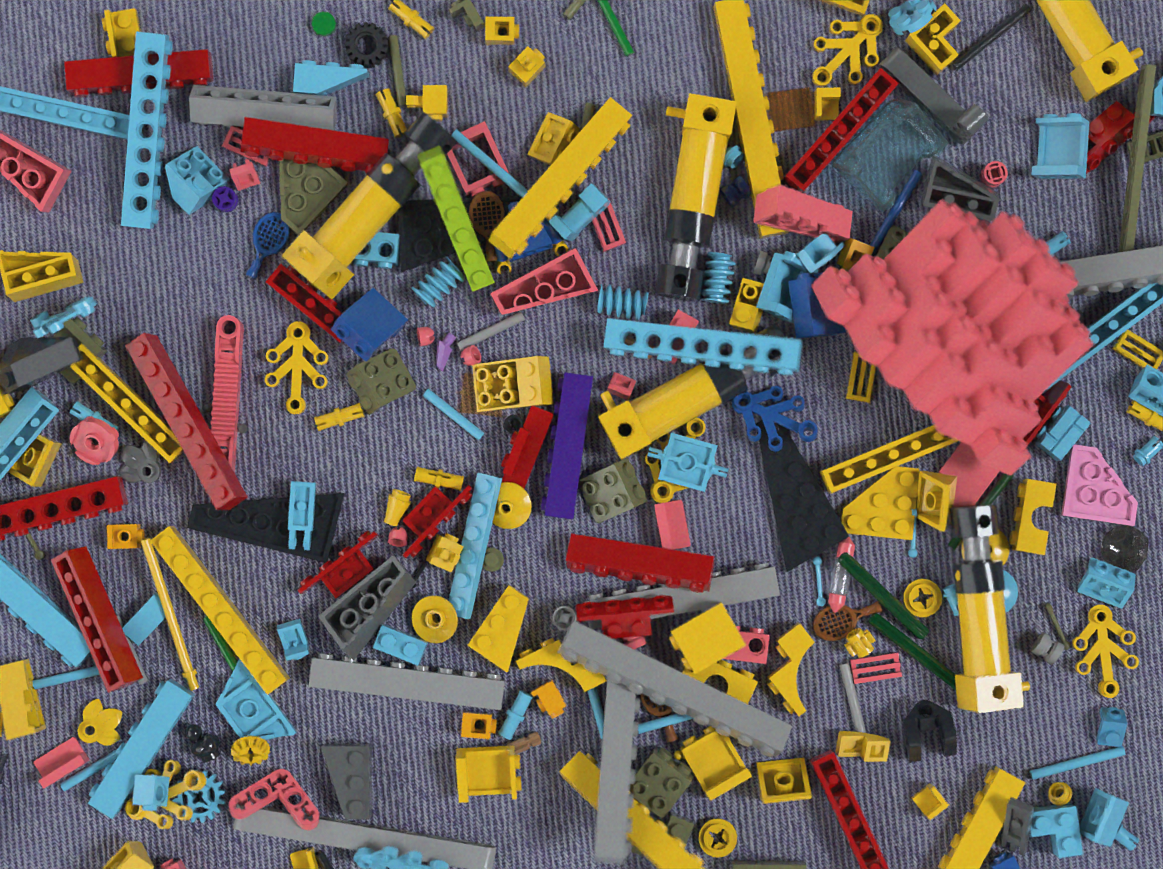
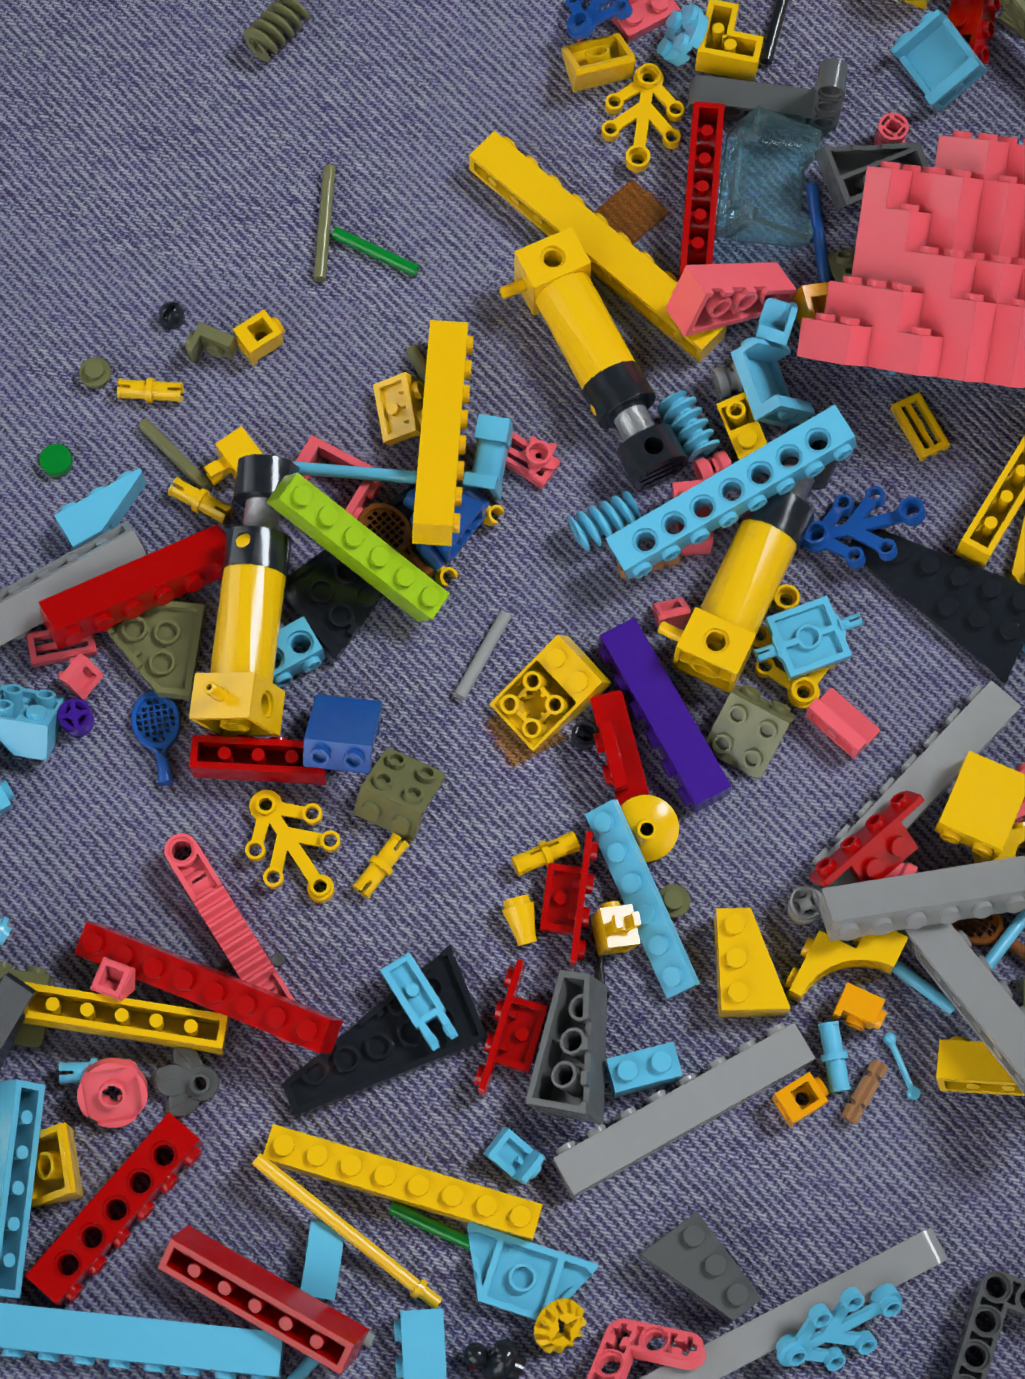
camera: 35 degrees left, 15 degrees down
(39, 554) = (137, 1280): olive hinge -> none
(114, 536) = (224, 1193): light orange brick -> none
(134, 380) = (114, 979): none -> coral slope
(367, 30) = (115, 432): black tyre -> none
(398, 537) = (551, 958): coral hinge -> none
(425, 336) = (411, 710): coral hinge -> none
(425, 623) = (654, 1029): yellow dish -> none
(438, 283) = (384, 640): medium azure piece -> none
(444, 350) = (446, 711): medium lavender bar -> none
(453, 414) = (508, 773): medium azure bar -> none
(471, 355) = (481, 694): coral hinge -> none
(487, 771) = (855, 1143): yellow panel -> none
(527, 65) = (315, 353): yellow brick -> none
(546, 765) = (912, 1092): none -> medium azure hinge
(553, 281) = (511, 553): coral wedge -> none
(614, 224) = (538, 447): none -> coral plate
(640, 563) = (842, 779): red brick -> none
(718, 316) = (706, 468): none -> coral wheel
(733, 156) = (609, 295): medium azure plate -> none
(735, 191) = (638, 327): clear blue wheel -> none
(807, 311) = (816, 382): blue brick -> none
(826, 103) = (661, 181): yellow panel -> none

